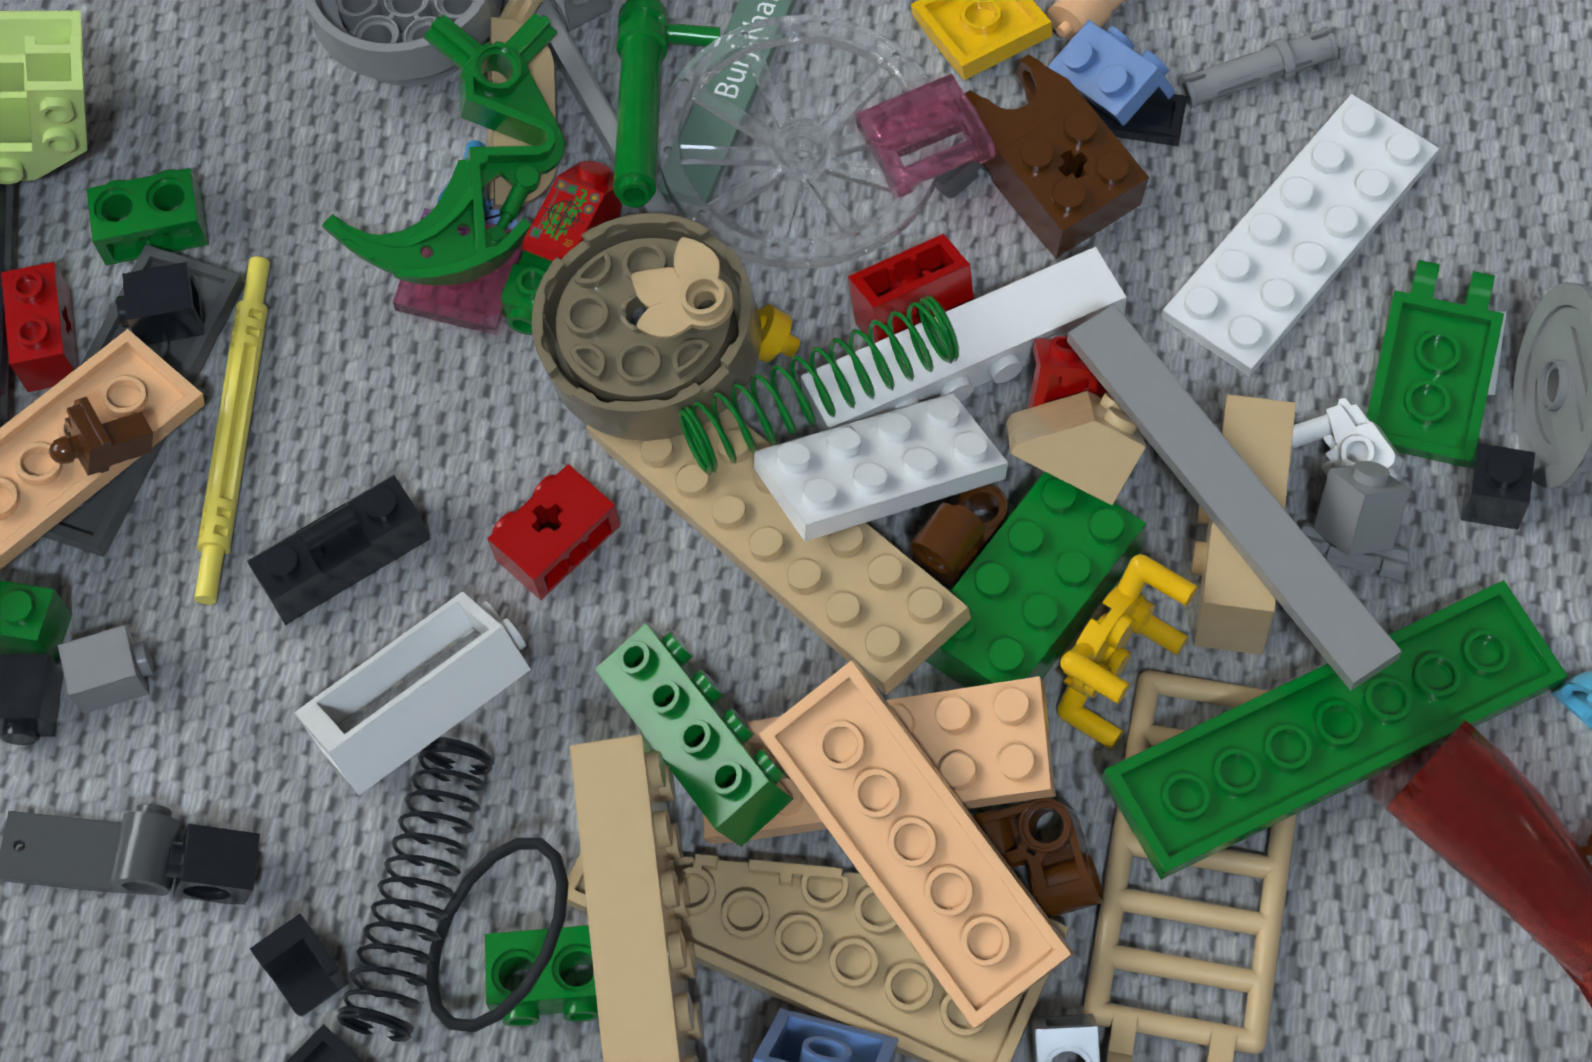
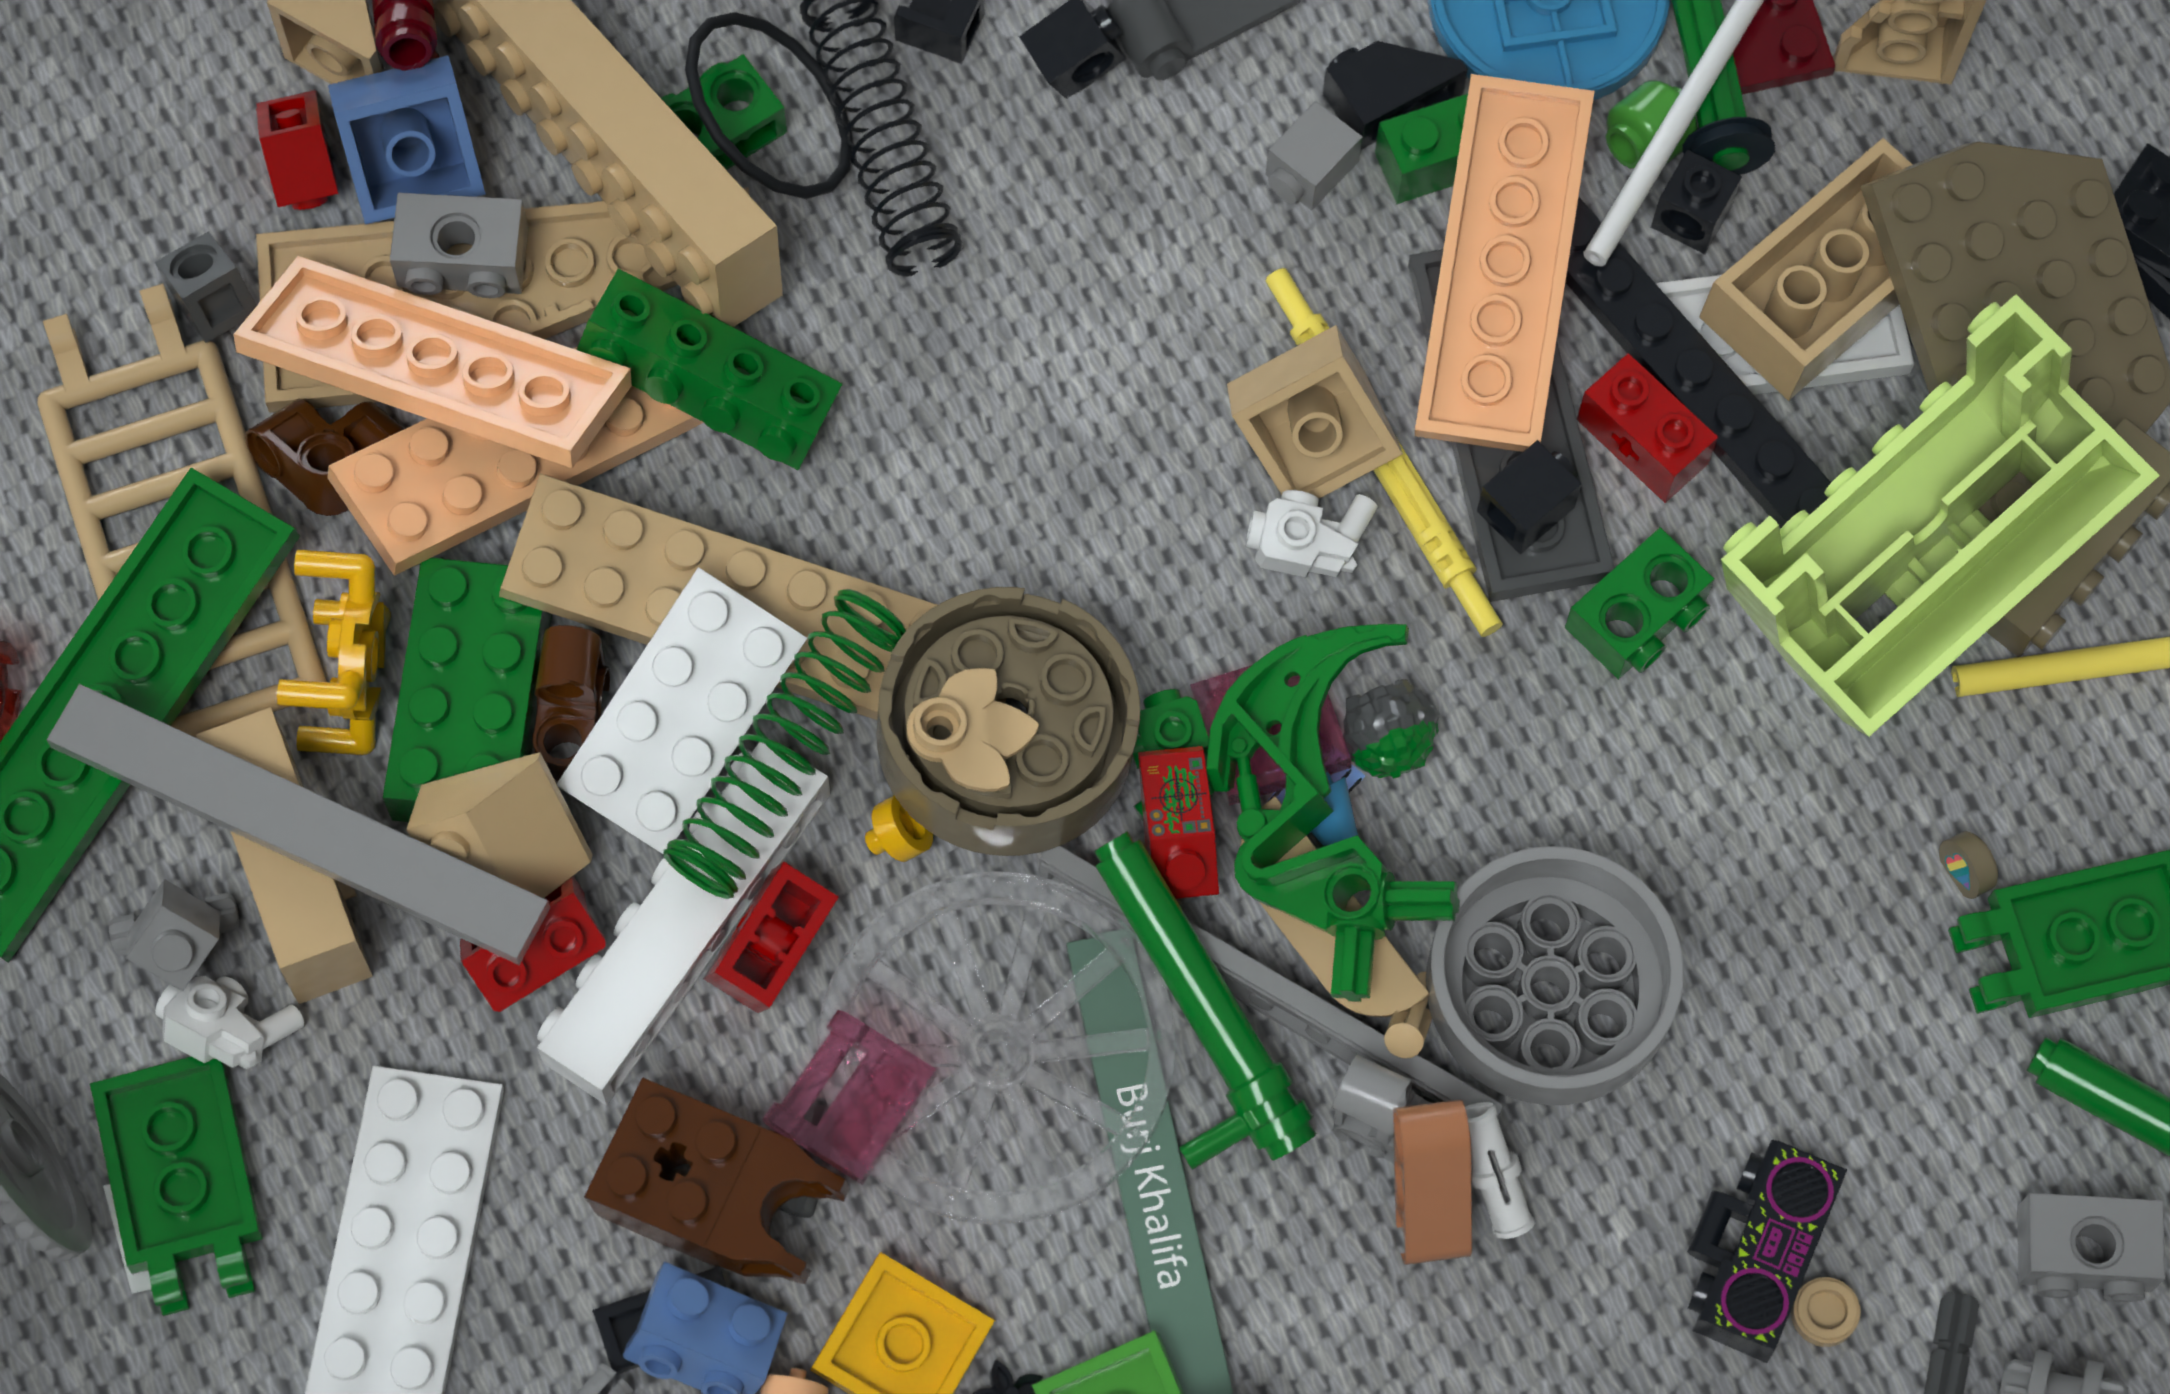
camera: 140 degrees right, 5 degrees up
(100, 444) = (1452, 291): reddish brown piece -> none
(265, 458) = (1313, 416): none -> tan slope
(339, 549) = (1176, 375): black piece -> none
(340, 384) = (1297, 540): none -> white piece
(381, 207) = (1390, 729): none -> piece
(414, 690) = (998, 271): white piece -> none
(545, 556) = (977, 472): red brick -> none
(847, 988) = (433, 223): none -> light grey brick
(1498, 486) = (48, 1055): black brick -> none

